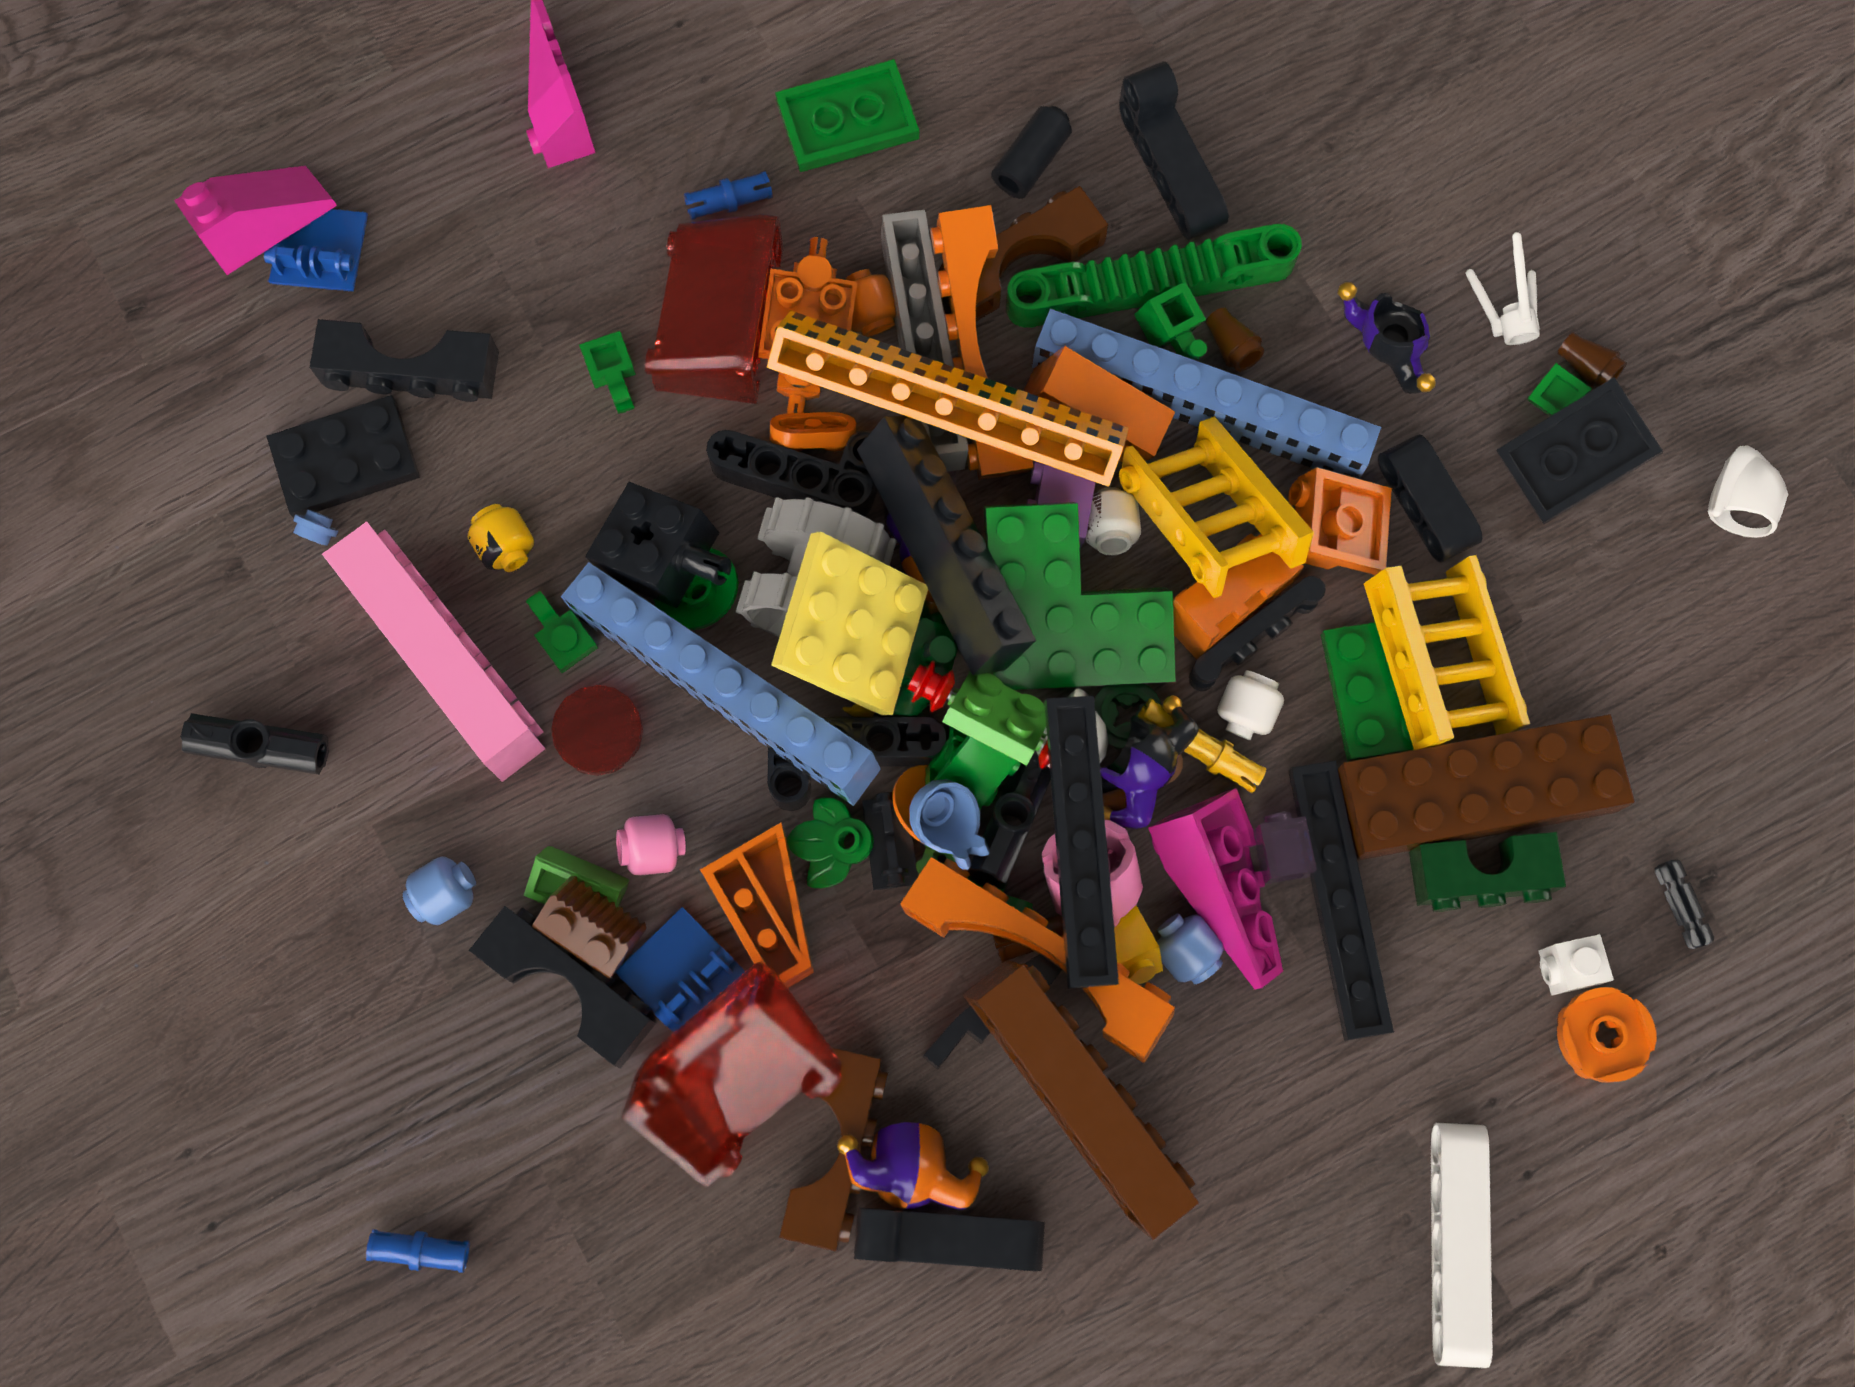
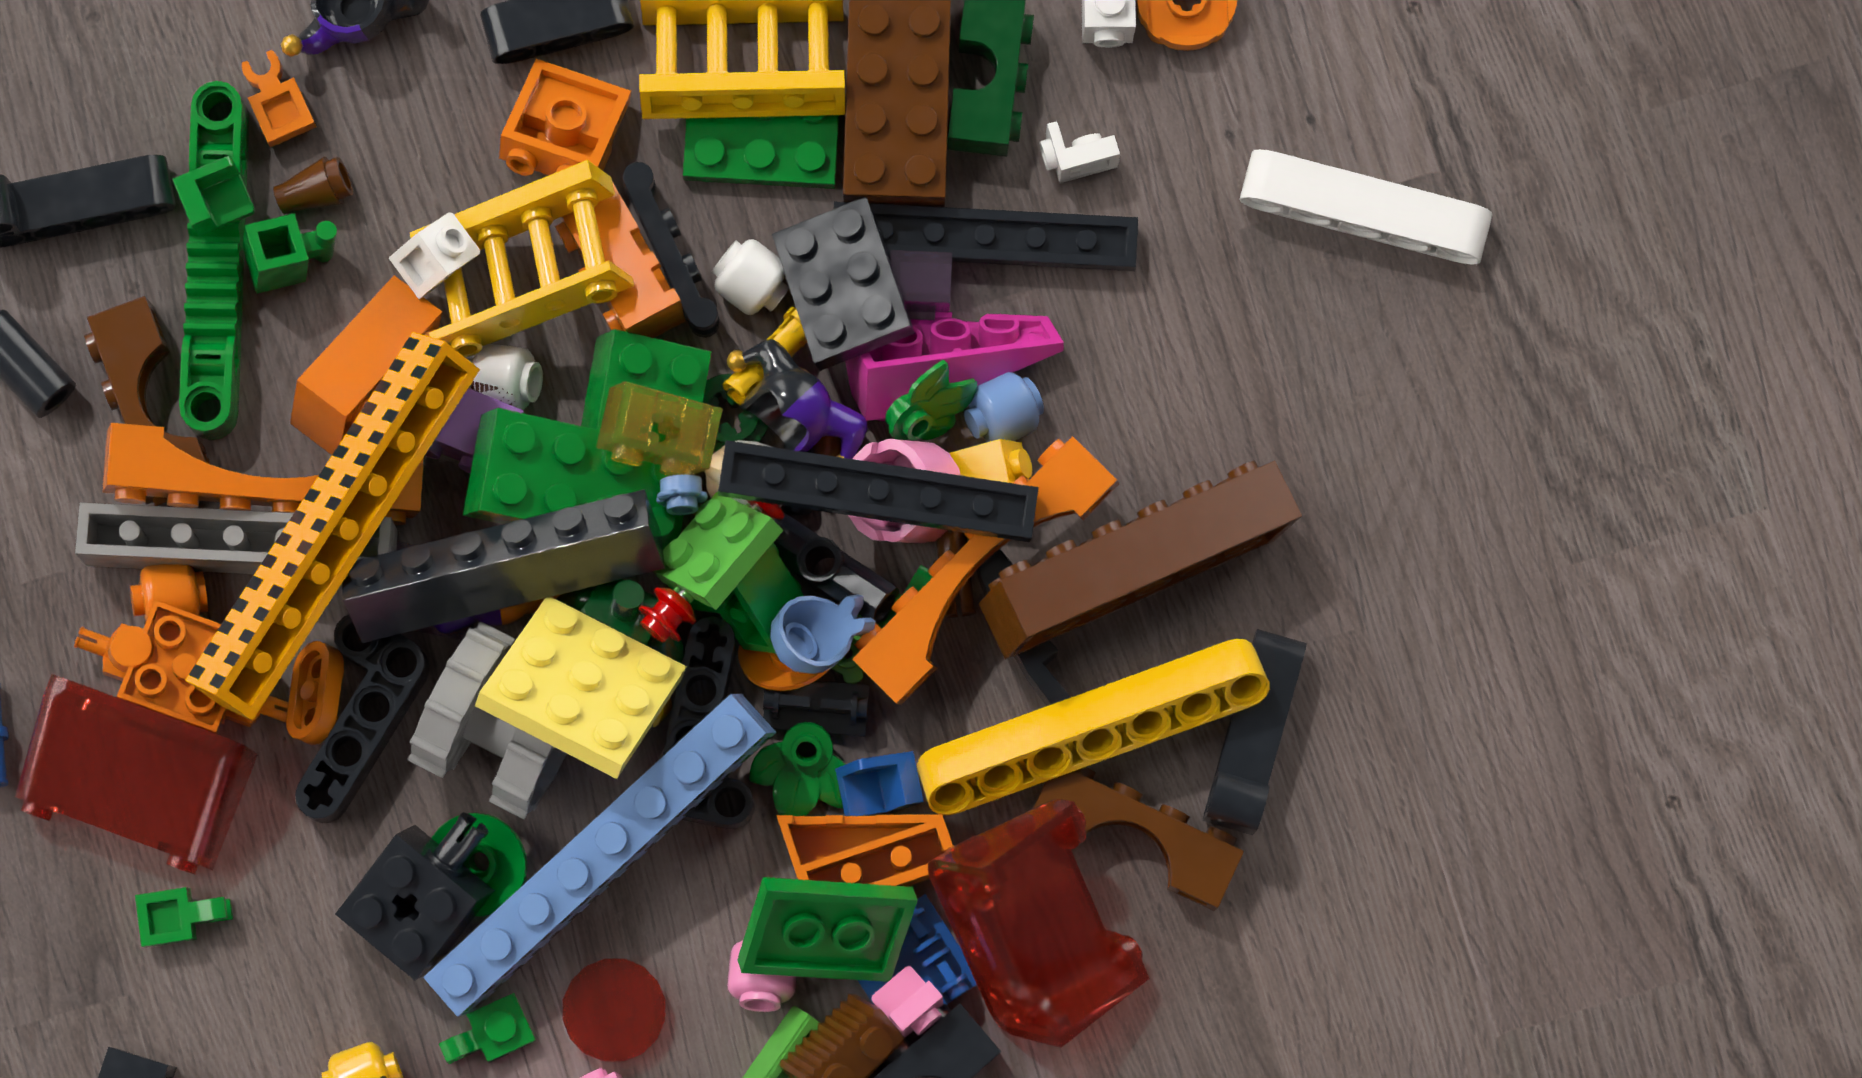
camera: 80 degrees left, 5 degrees up
(642, 975) = (909, 1002): none -> bright pink bracket
(688, 886) = (826, 929): none -> green plate
(830, 909) = (879, 784): none -> blue panel
(911, 1168) = (1172, 771): piece -> none
(920, 1089) = (1092, 726): none -> yellow beam
(1042, 677) = (681, 494): none -> medium blue plate
(1106, 667) = (688, 428): none -> clear yellow brick
(1174, 879) = (929, 405): none -> green plate
(1199, 391) = (398, 205): medium blue brick -> none
(1201, 434) = (434, 254): none -> white bracket
(1203, 252) = (214, 195): none -> green panel
(1263, 780) = (843, 283): none -> plate
(1296, 298) = (279, 105): none -> orange plate
(1436, 974) = (1086, 156): none -> white bracket

